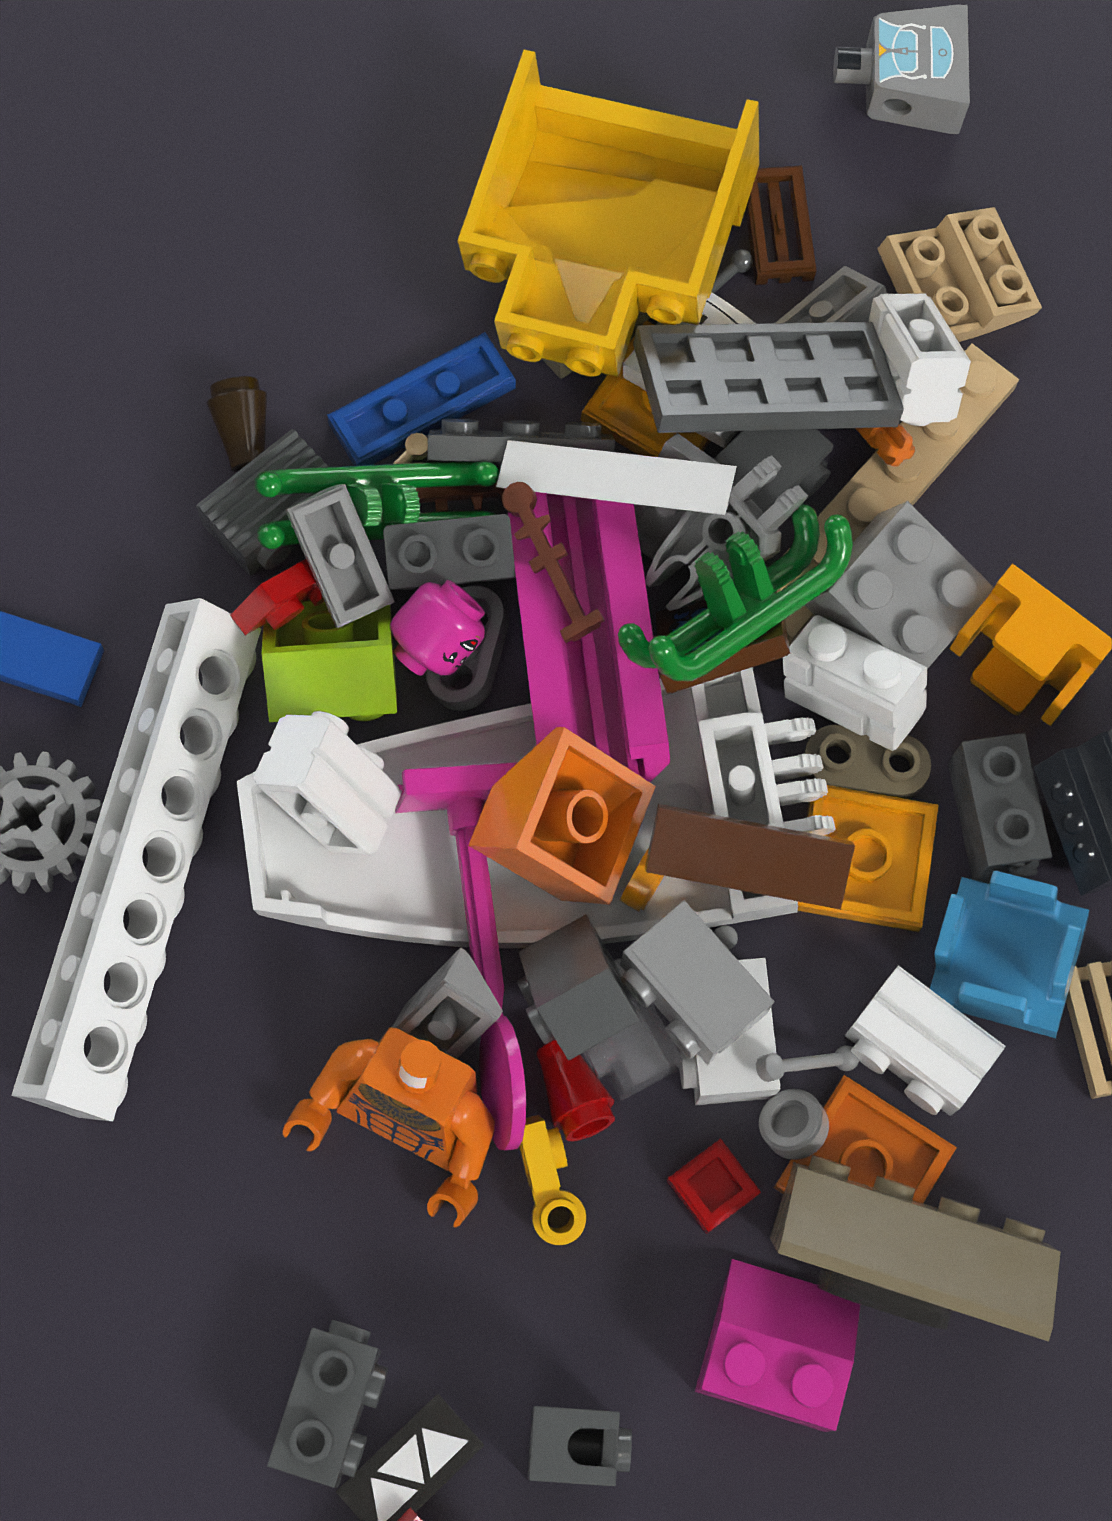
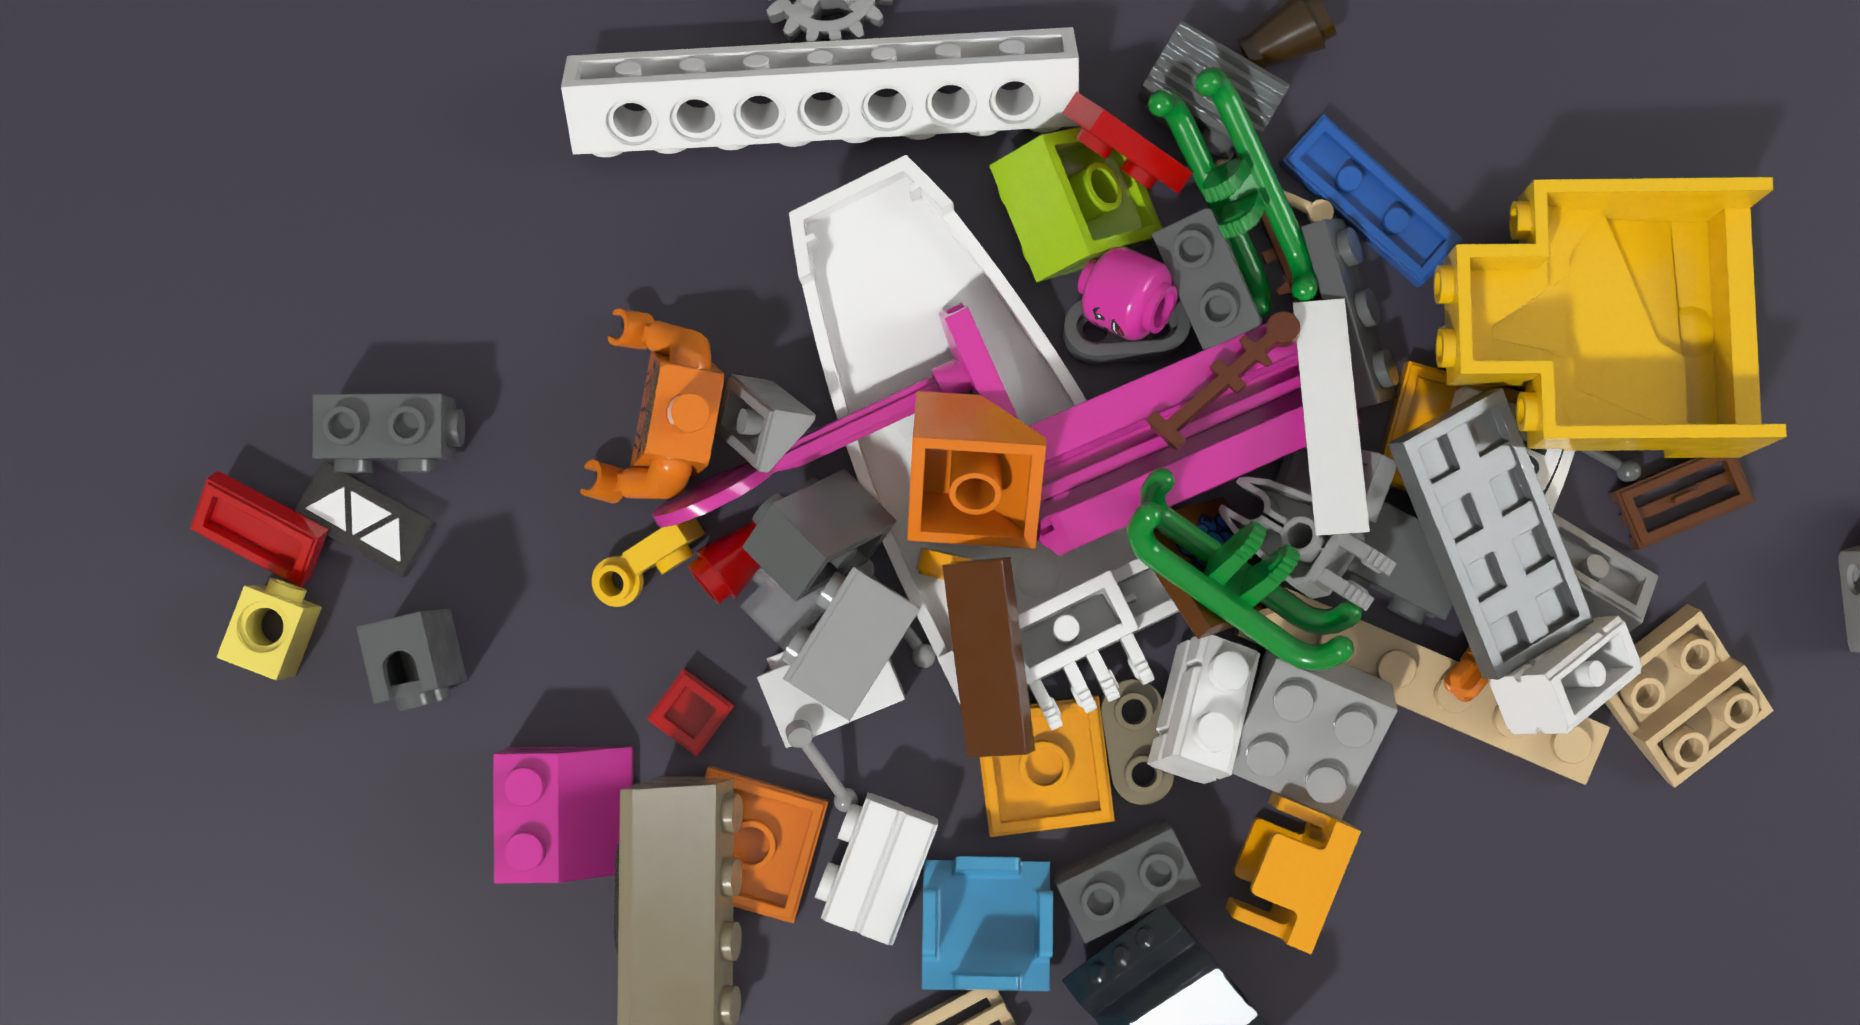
camera: 80 degrees right, 15 degrees up
(328, 783) = (928, 240): white brick -> none
(339, 555) = (1167, 174): light grey slope -> none
(794, 1124) = (766, 769): light grey tile -> none

